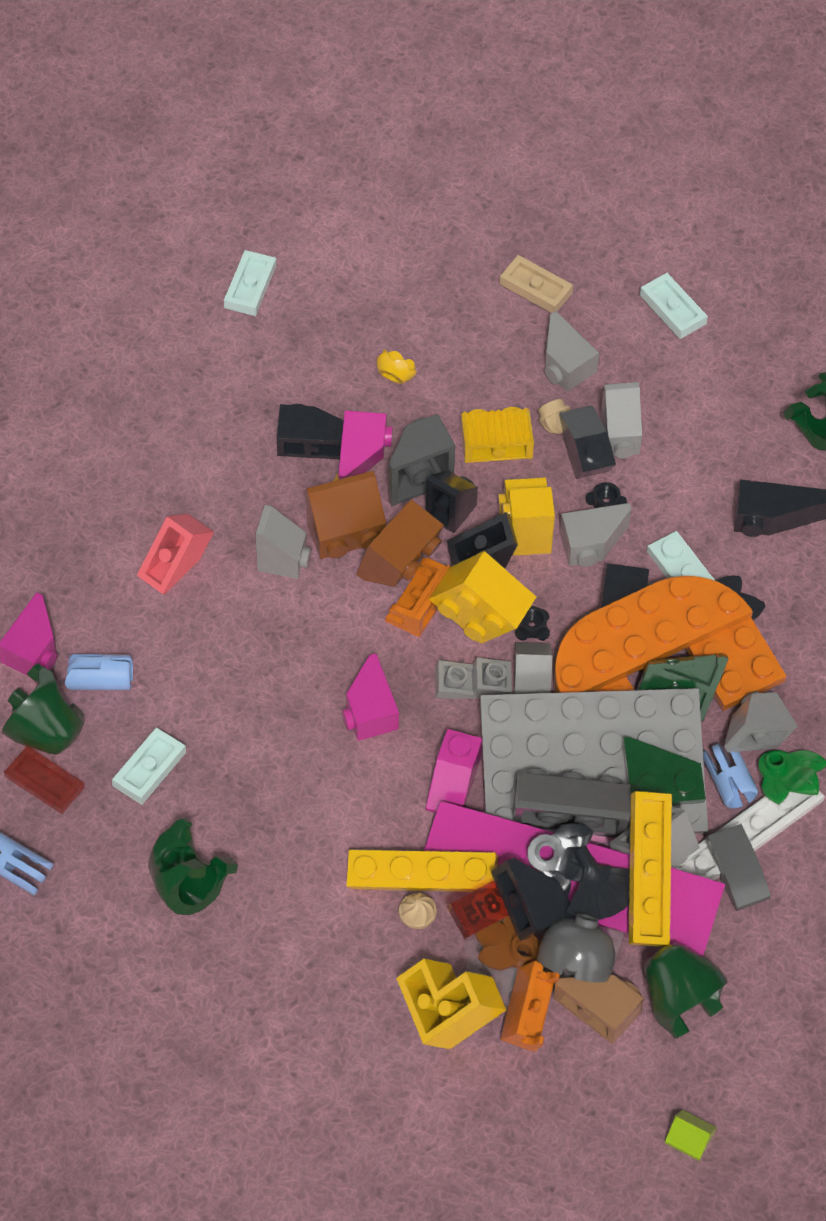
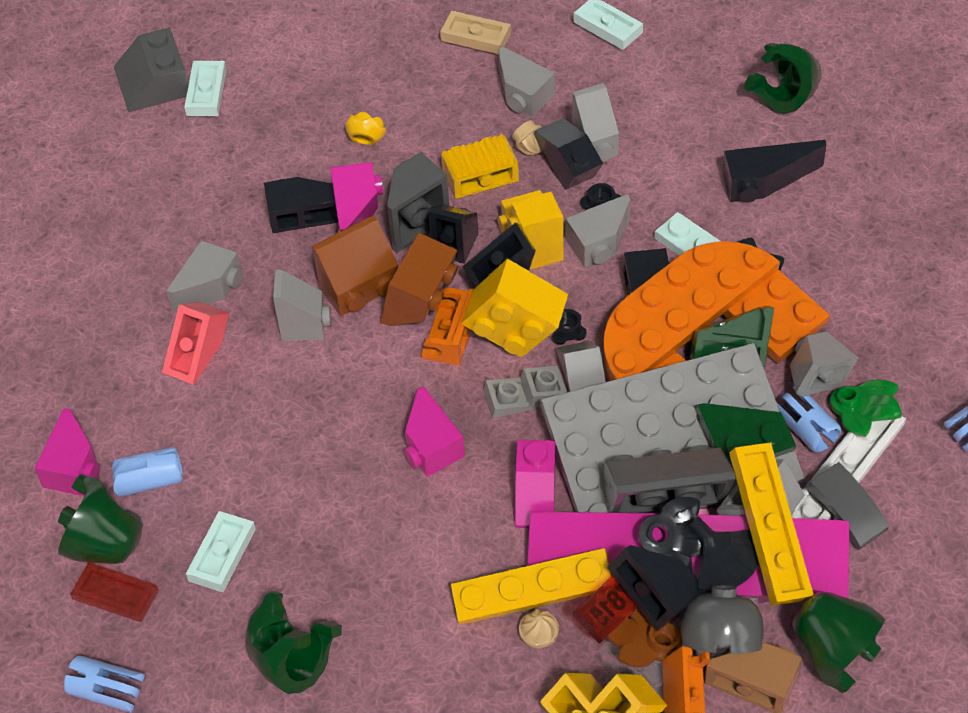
camera: 10 degrees left, 5 degrees down
(200, 252) = (151, 71): none -> dark grey slope
(200, 489) = (205, 276): none -> light grey slope

